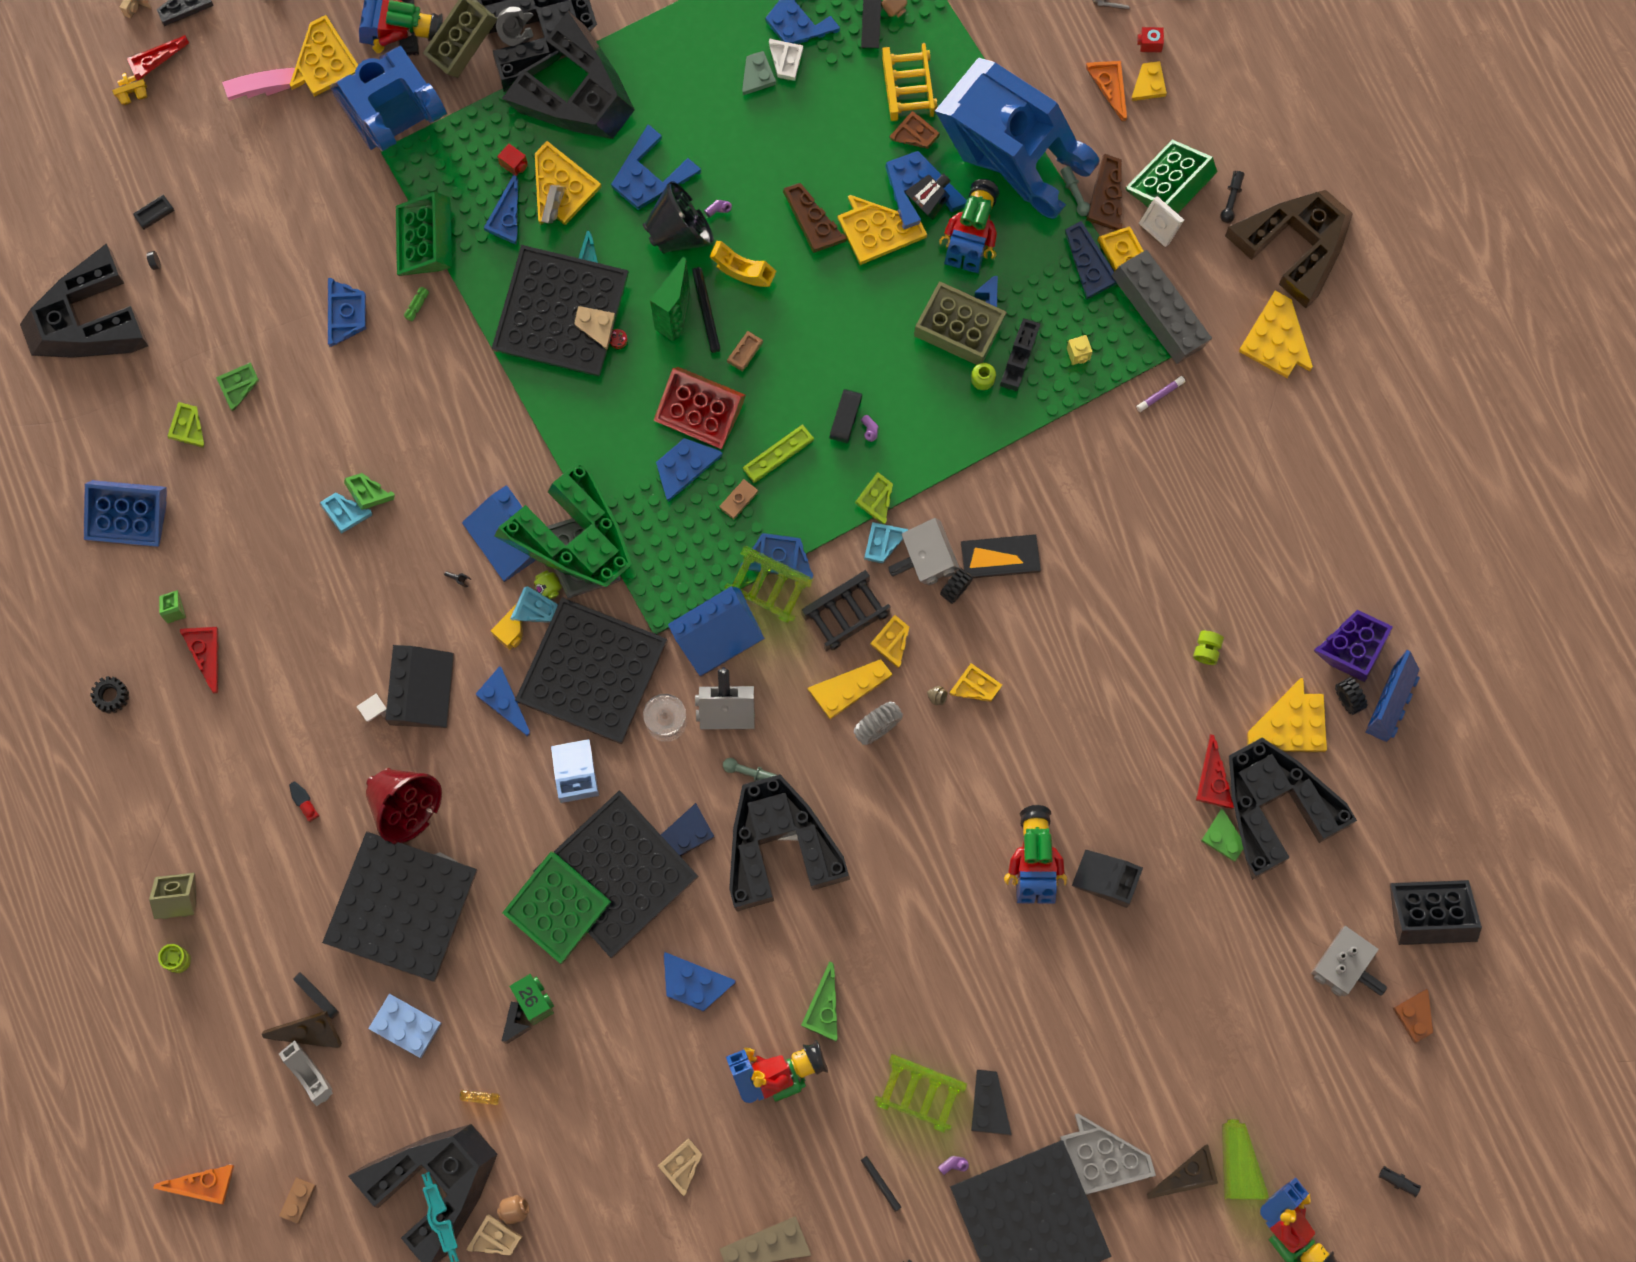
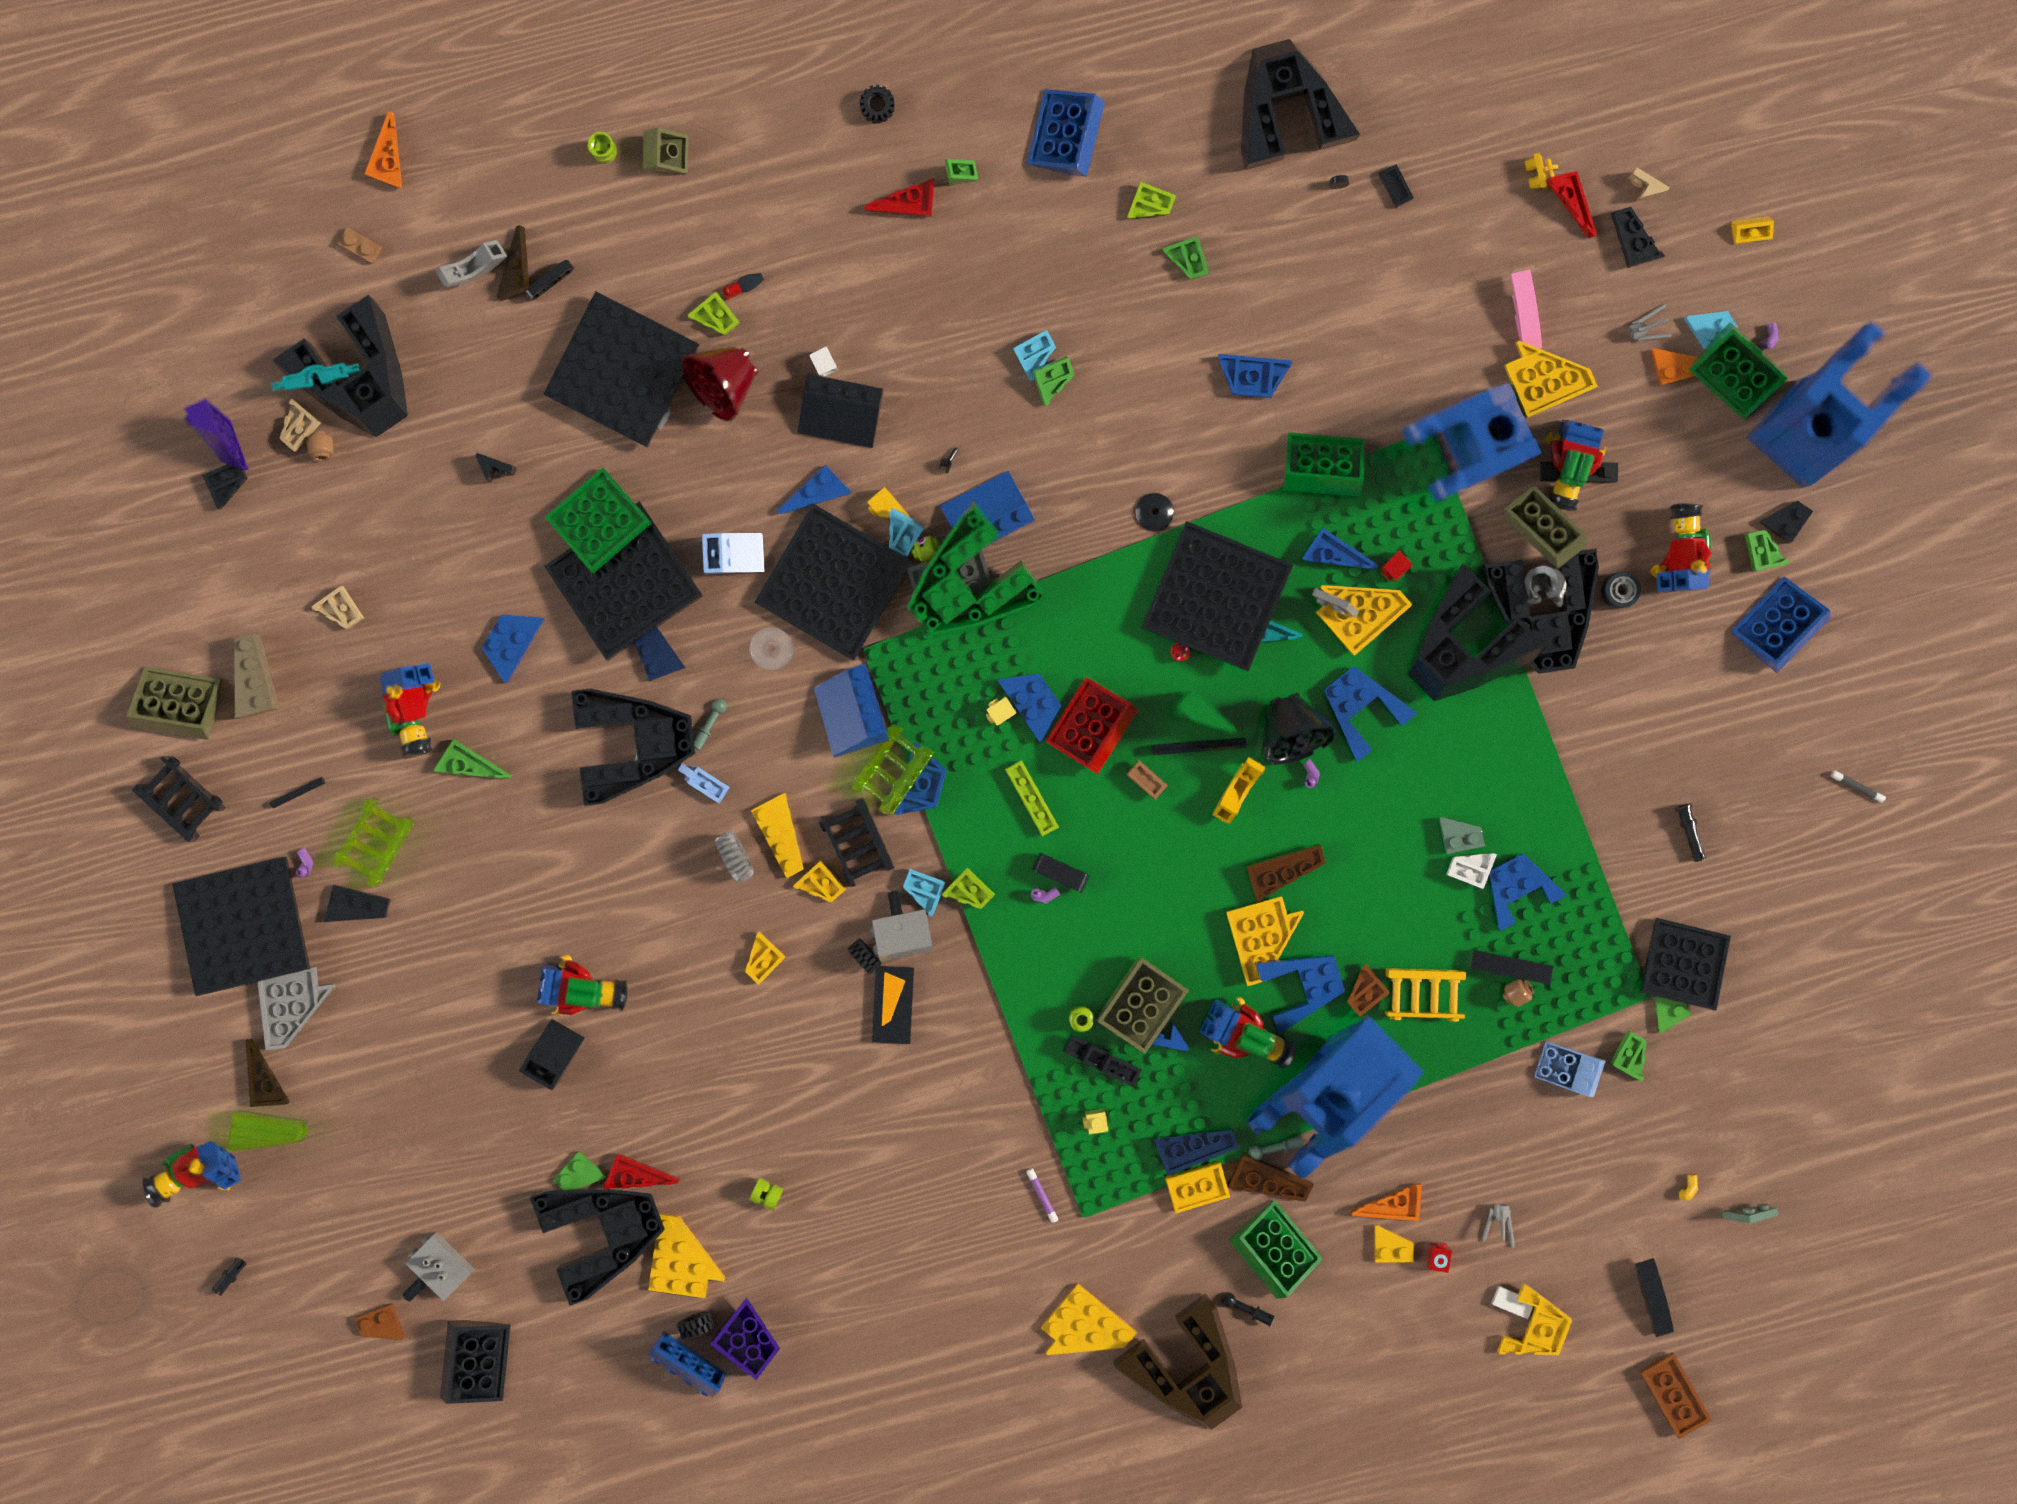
camera: 95 degrees right, 15 degrees up
(335, 823) = (715, 314): none -> lime wing
(405, 1026) = (509, 362): light blue plate -> none
(416, 304) = (1251, 449): bright green axle -> none
(479, 1097) = (431, 426): clear yellow axle -> none
(490, 390) = (1144, 512): none -> black dish
(531, 999) = (511, 486): green brick -> none
(595, 324) = (1194, 630): tan wing -> none
(697, 492) = (999, 711): none -> light yellow brick
(725, 705) = (772, 709): light grey piece -> none
(738, 499) = (988, 751): medium nougat plate -> none
(808, 766) = (704, 782): none -> light blue hinge
(930, 194) = (1290, 996): black torso -> none
(937, 695) = (758, 919): dark tan plate -> none
(1161, 221) = (1226, 1230): white plate -> none
(1161, 306) = (1130, 1213): dark grey brick -> none

